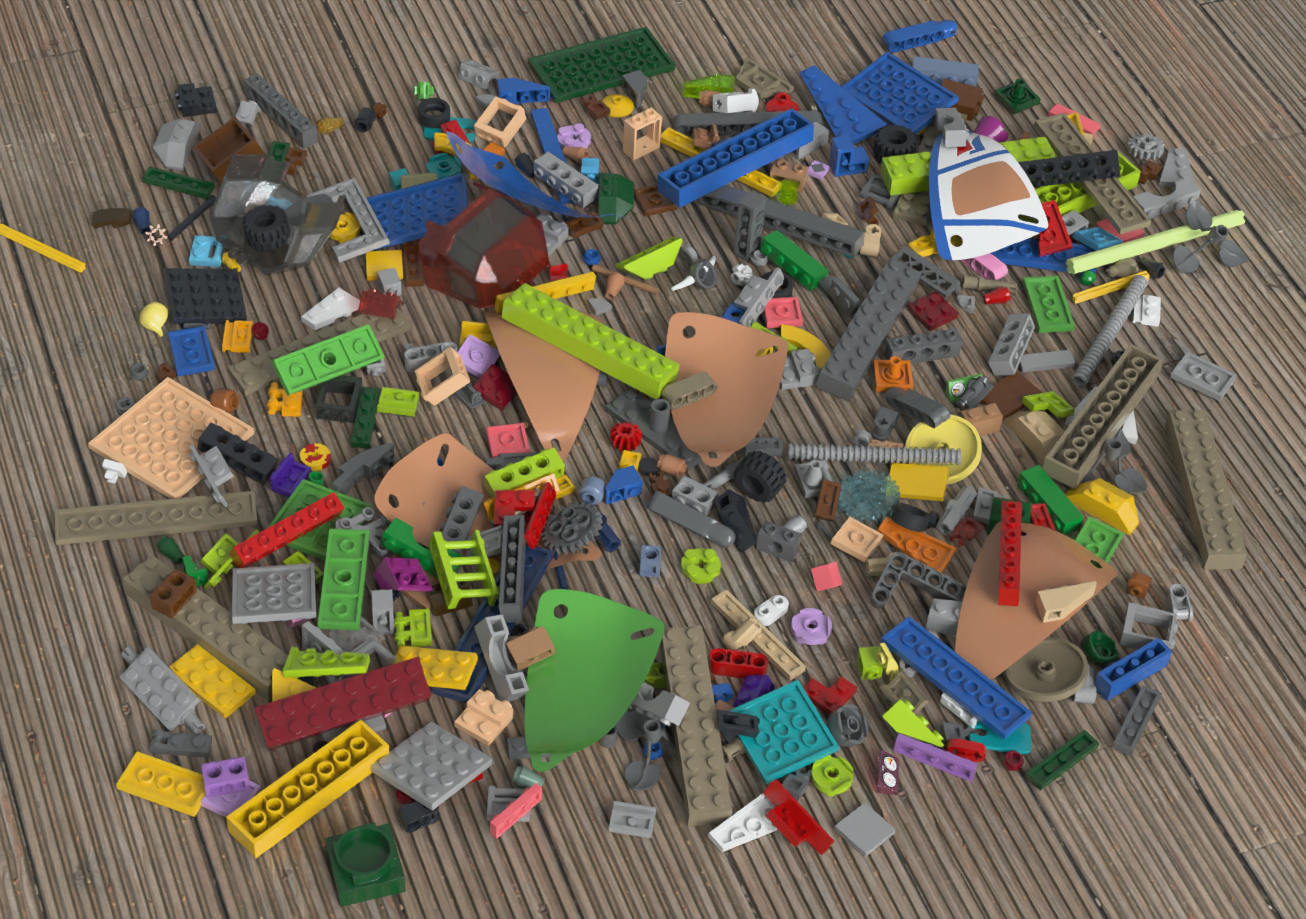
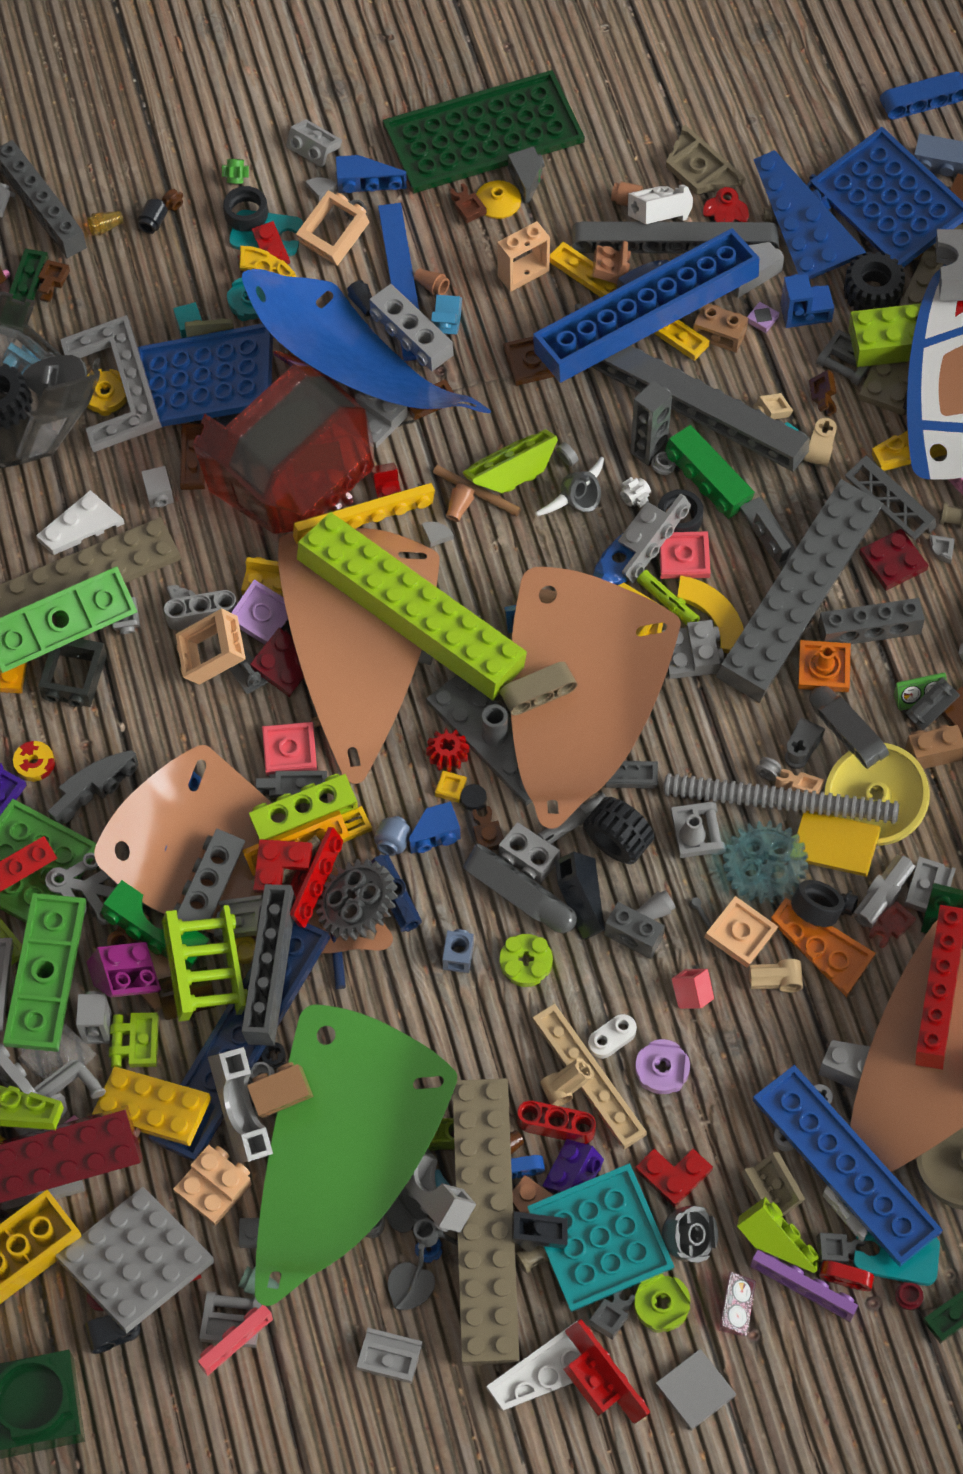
camera: 10 degrees right, 15 degrees up
(316, 477) = (33, 795): green hinge -> none
(365, 418) = (106, 701): dark green plate -> none
(378, 304) = (139, 524): clear red bracket -> none
(383, 260) = (155, 451): yellow tile -> none
(398, 401) = (151, 679): lime plate -> none
(494, 148) = (320, 270): orange tile -> none
(566, 135) = (433, 242): lavender plate -> none
(592, 257) = (435, 453): blue plate -> none
(615, 197) = (476, 355): dark green wedge -> none
(672, 465) = (504, 800): nougat brick -> none
(718, 82) = (638, 171): clear neon green slope -> none
(788, 192) = (716, 356): clear neon green bracket -> none
(827, 500) = (708, 868): reddish brown plate -> none
(868, 663) = (734, 1131): lime brick -> none
(886, 659) = (755, 1134): light yellow slope -> none
(920, 581) = (820, 1007): dark grey beam -> none

